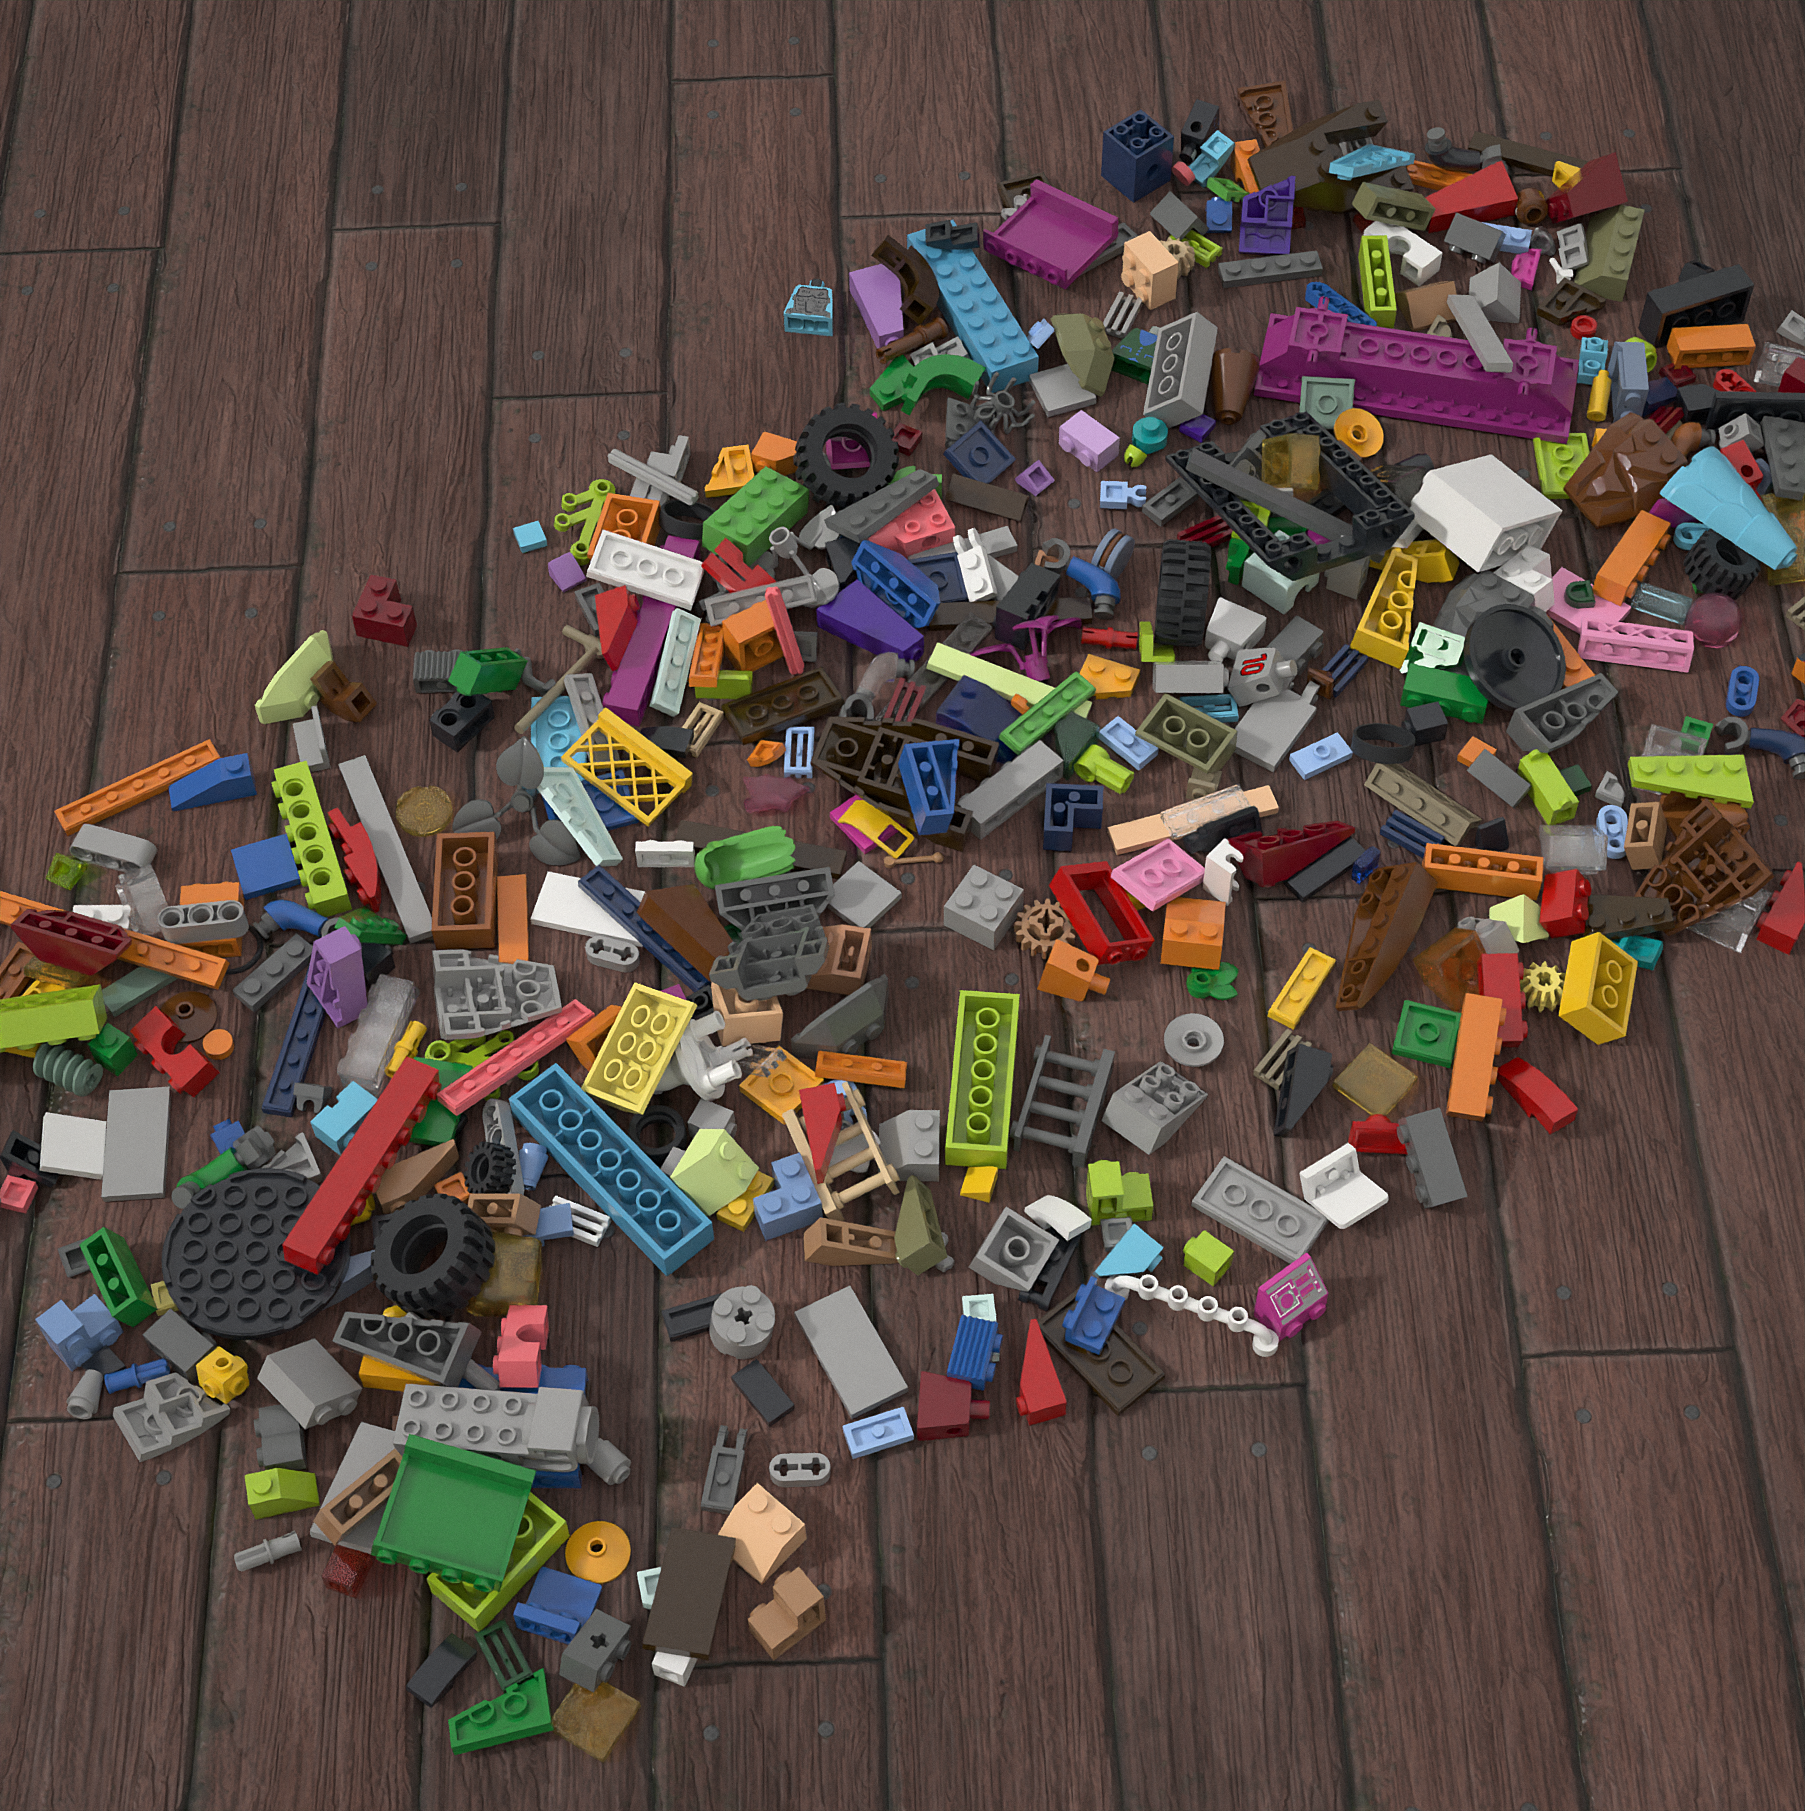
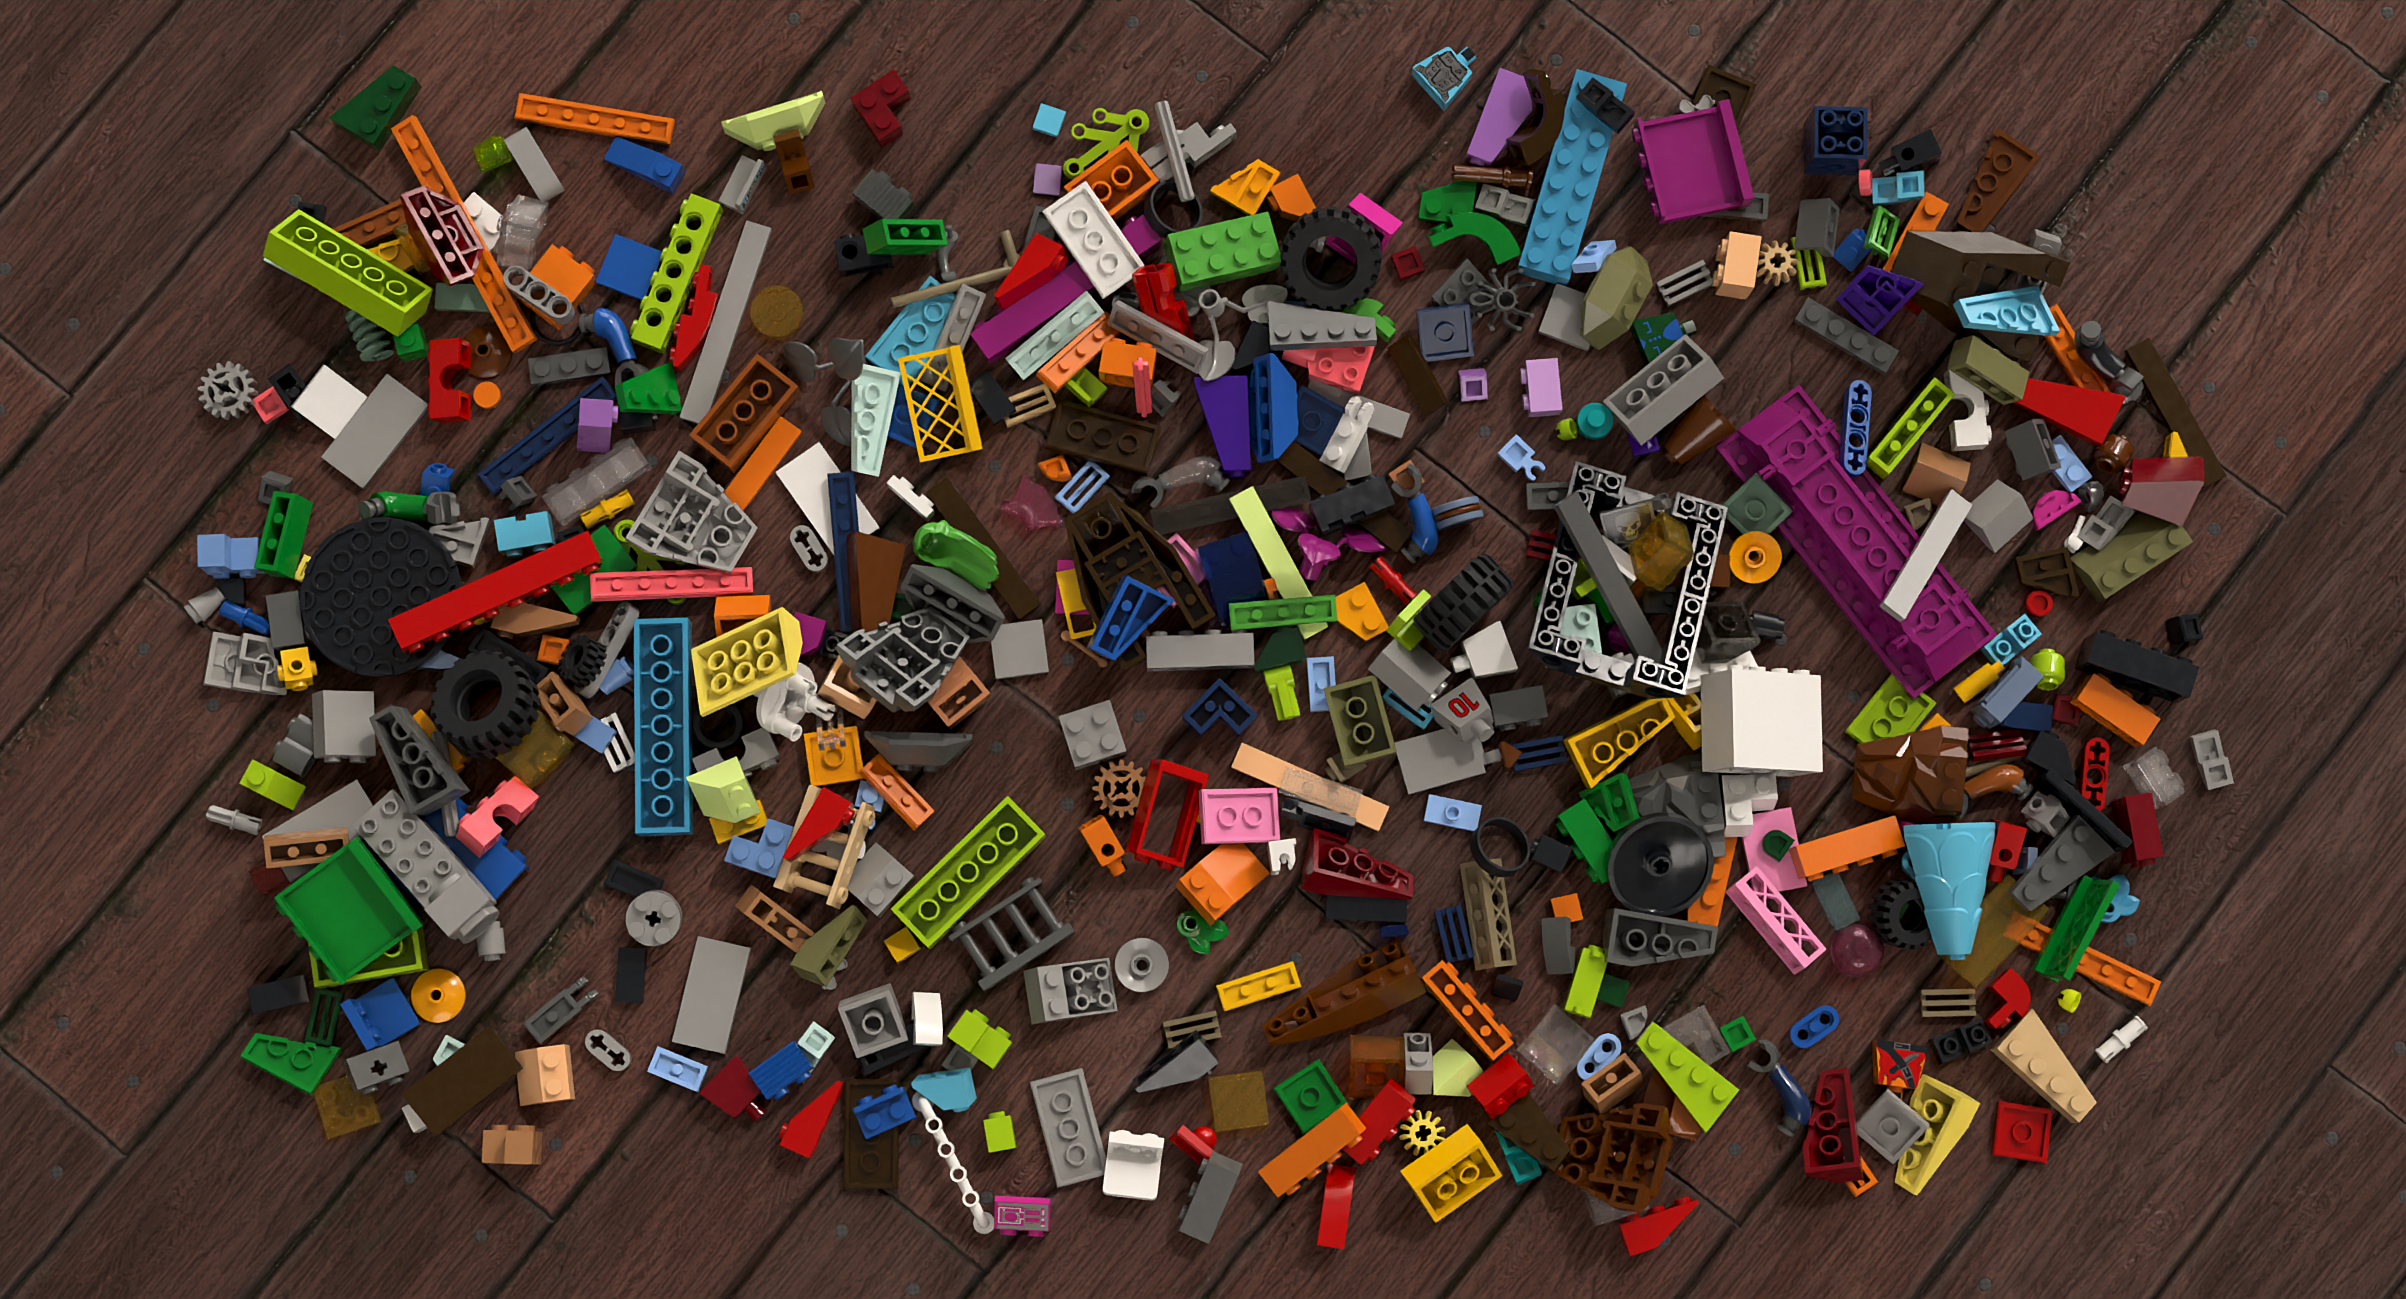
camera: 35 degrees right, 25 degrees up
(911, 688) = (1162, 530): dark red tile -> none

